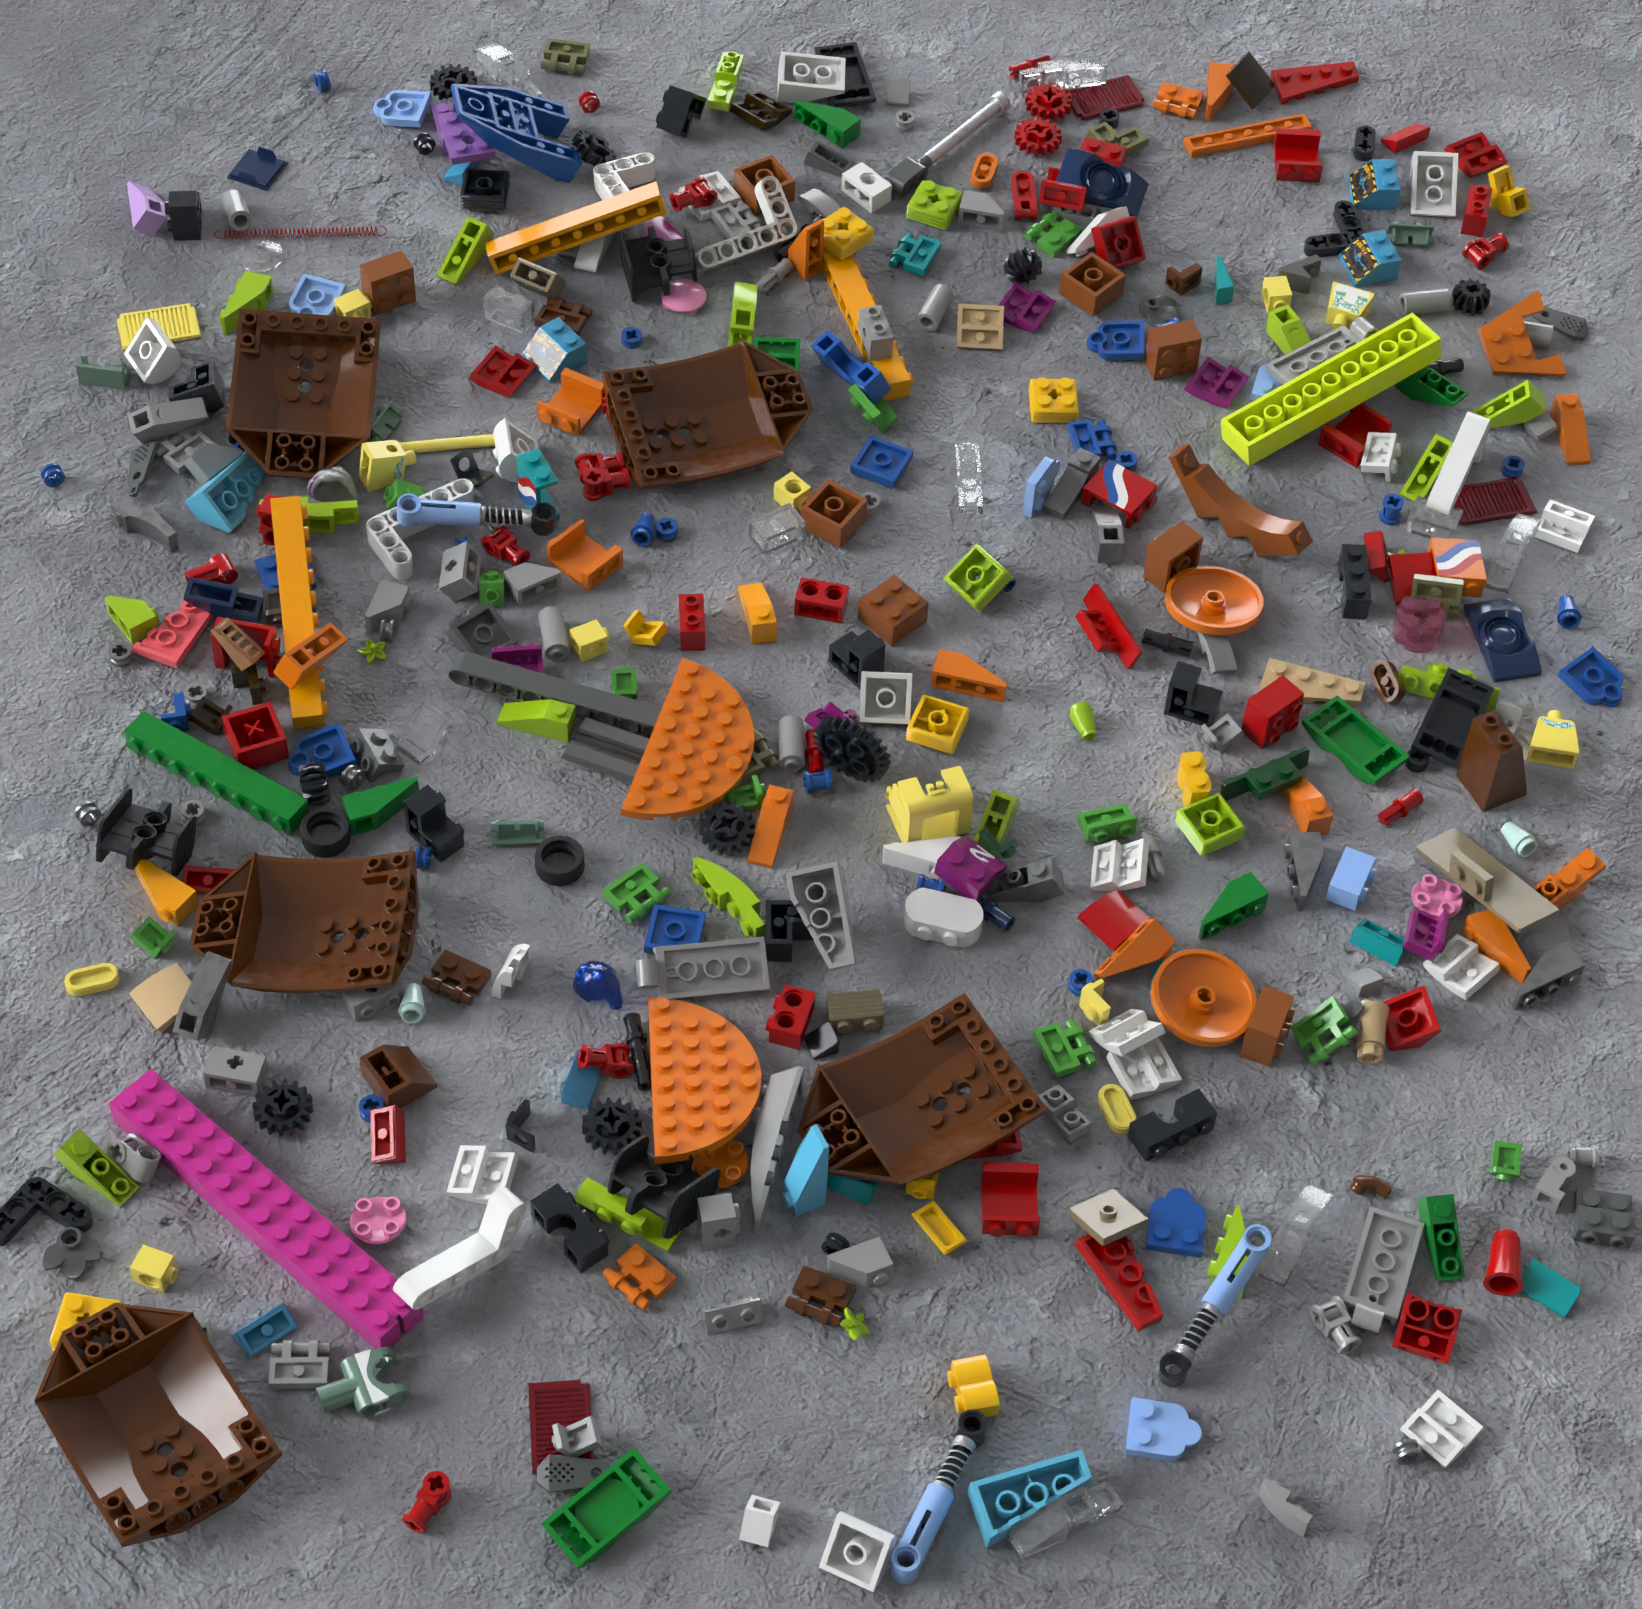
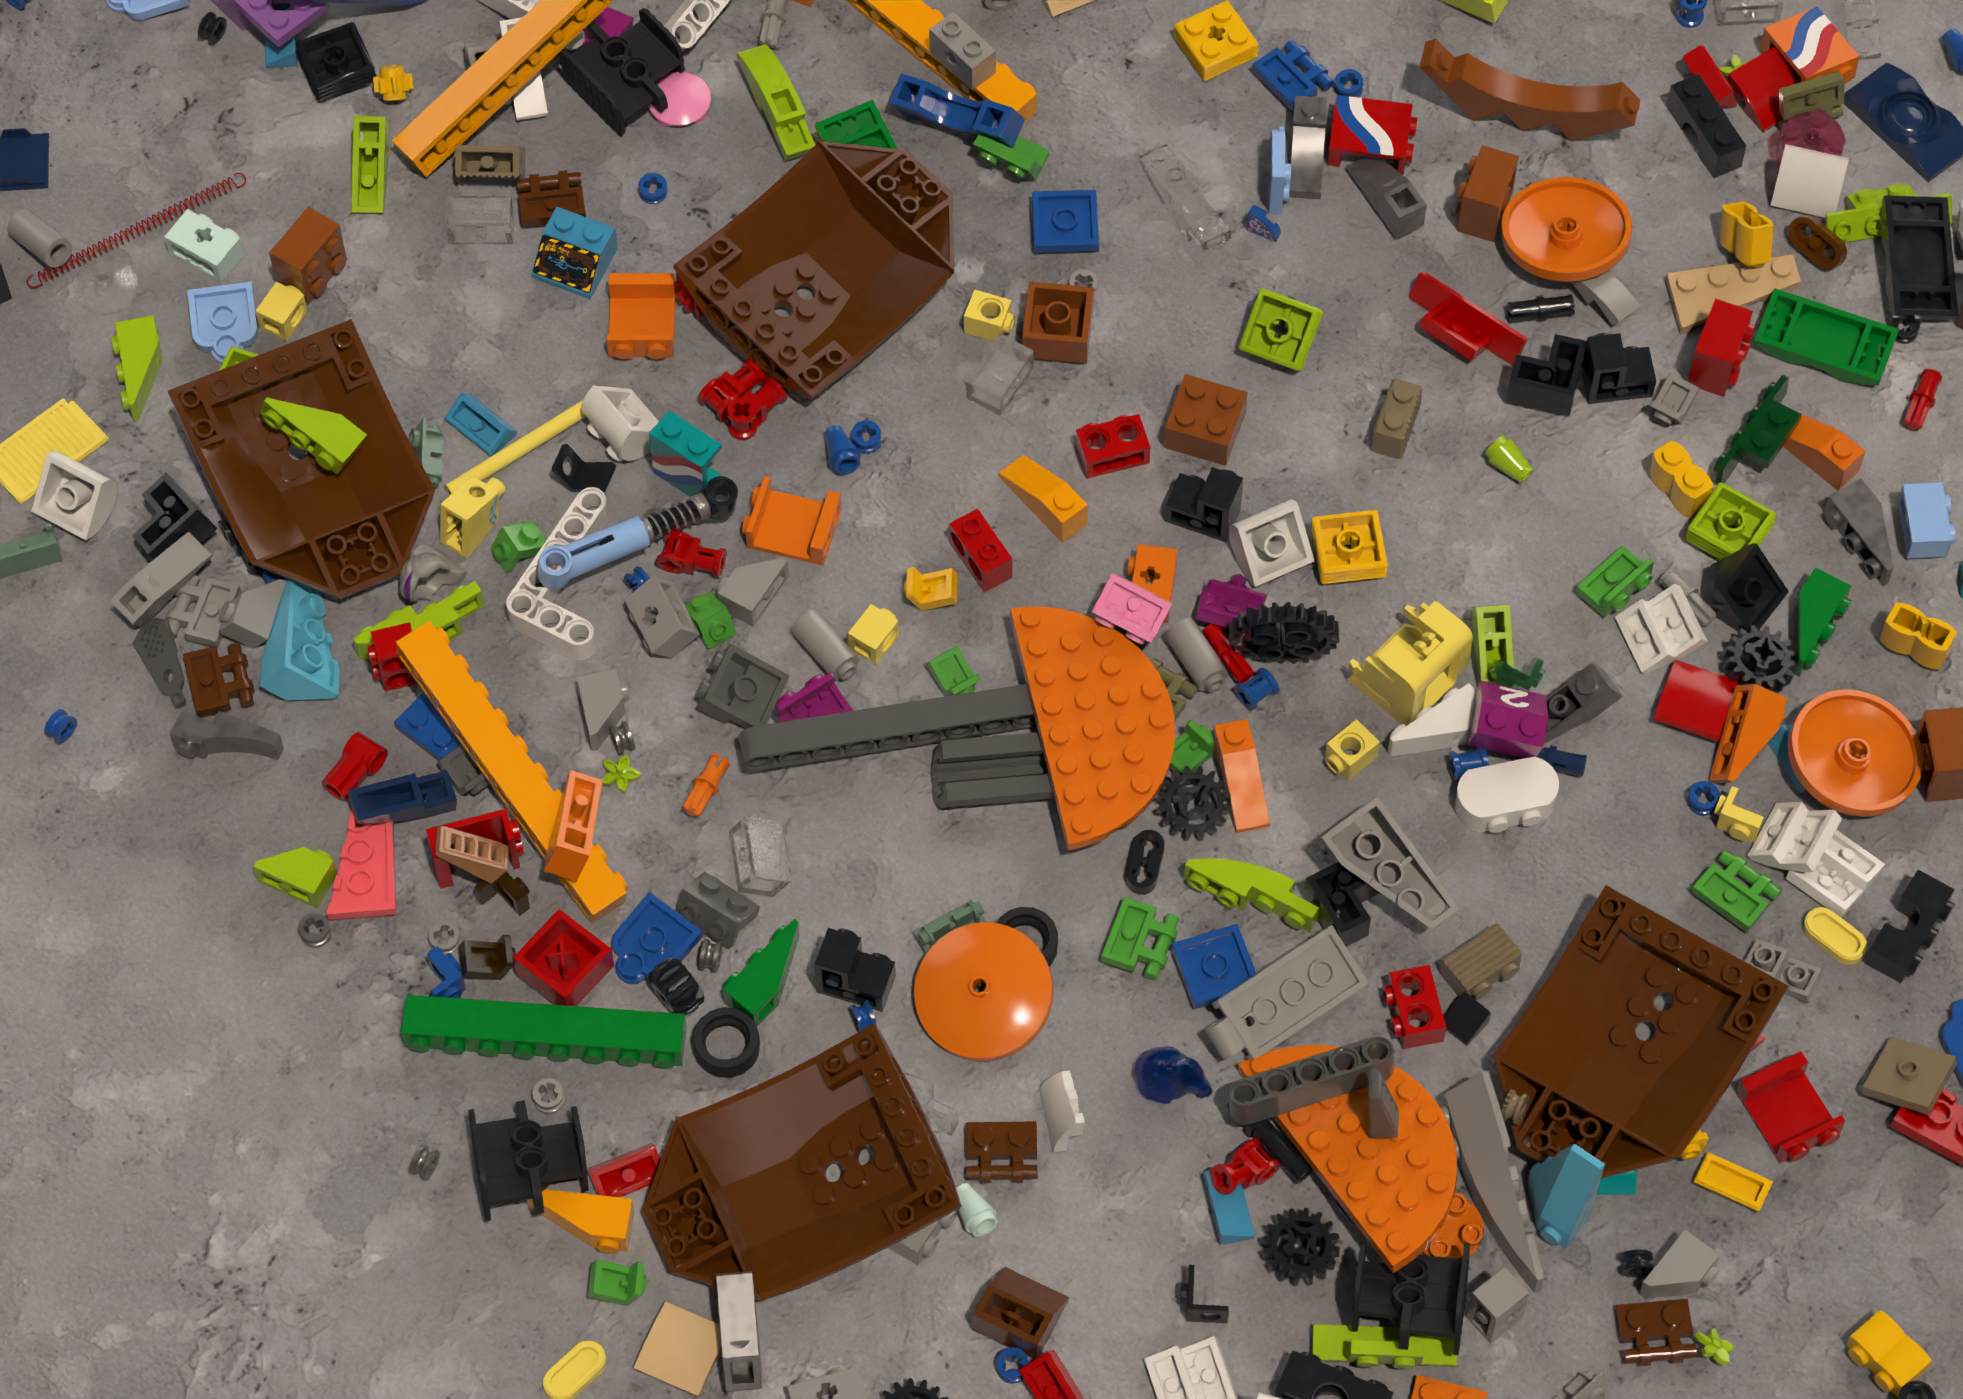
camera: 25 degrees left, 10 degrees up
(159, 488) = (207, 680): none -> reddish brown plate
(322, 378) = (320, 432): none -> lime slope
(333, 255) = (204, 245): none -> light aqua brick
(420, 680) = (705, 785): none -> orange axle
(430, 420) = (480, 423): none -> dark azure slope
(502, 372) = (525, 312): red slope -> none
(510, 214) = (393, 82): none -> yellow gear
(510, 876) = (987, 1022): none -> orange dish
(540, 717) = (879, 766): lime slope -> none
(675, 853) = (1138, 860): none -> black beam
(683, 1022) = (1298, 1091): none -> dark grey beam
(714, 1054) = (1382, 1108): none -> dark grey slope
(762, 693) = (1131, 608): none -> bright pink bracket
(791, 689) = (1155, 566): none -> orange brick
(809, 1100) = (1515, 1106): none -> dark tan bush
(855, 844) = (1355, 738): none -> light yellow brick
(962, 675) = (1338, 467): orange slope -> none
(1009, 516) = (1262, 225): none -> blue tile
(1022, 663) = (1396, 418): none -> dark tan brick
(1141, 685) = (1548, 383): none -> black brick
(1177, 913) = (1760, 659): none -> black gear
(1194, 867) = (1746, 588): none -> black slope
(1297, 946) = (1913, 634): none -> yellow brick
(1336, 652) = (1746, 233): none -> yellow brick
(1402, 639) = (1809, 181): none -> white slope

